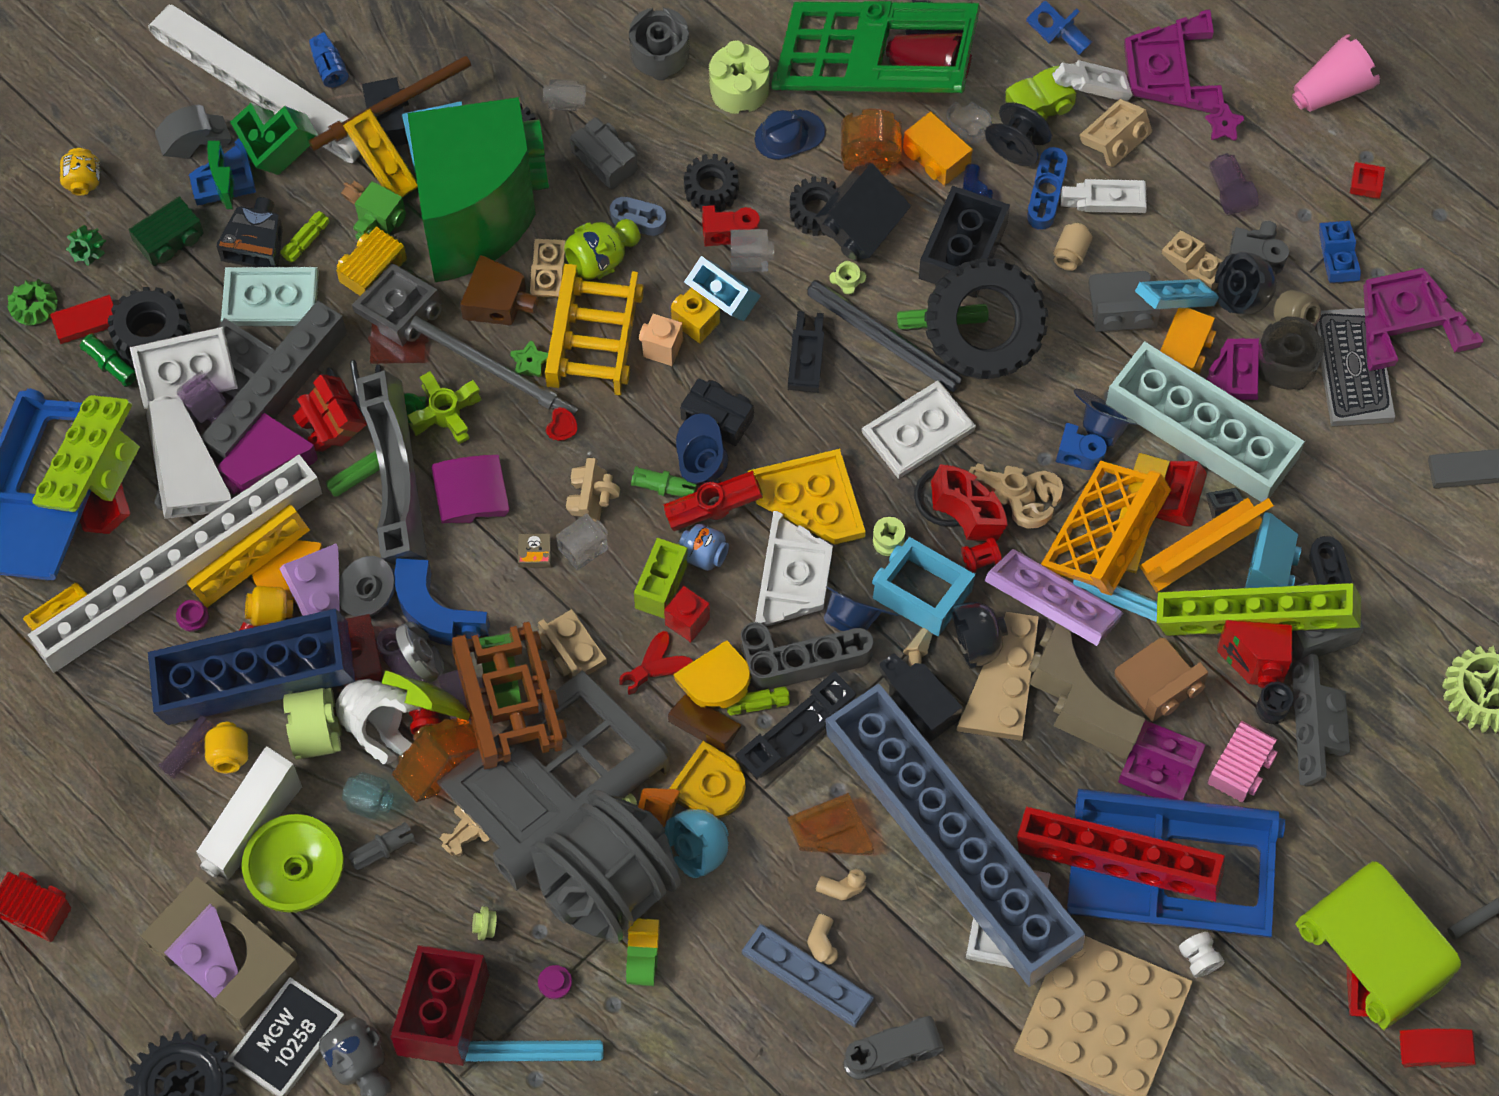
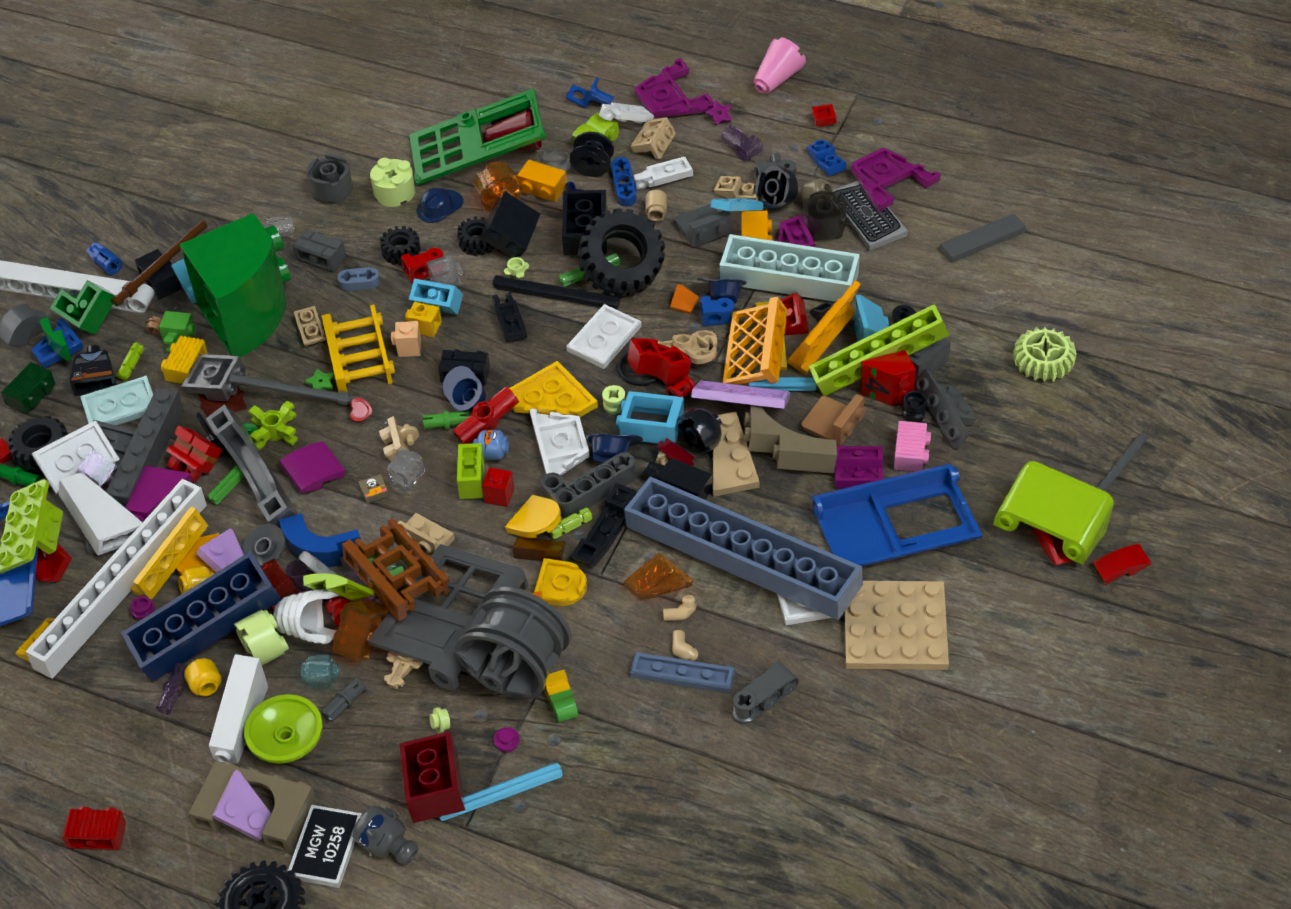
camera: 20 degrees left, 15 degrees down
(380, 154) = (163, 293): yellow tile -> none
(496, 294) = (281, 350): reddish brown torso -> none
(600, 247) = (341, 300): lime piece -> none
(654, 663) = (488, 527): red piece -> none
(698, 840) = (575, 611): medium azure cylinder -> none
(933, 651) = (675, 452): none -> dark red piece
(1046, 413) = (683, 299): none -> orange slope
(1121, 853) = (862, 517): red brick -> none
(1201, 954) = (941, 563): white wheel -> none

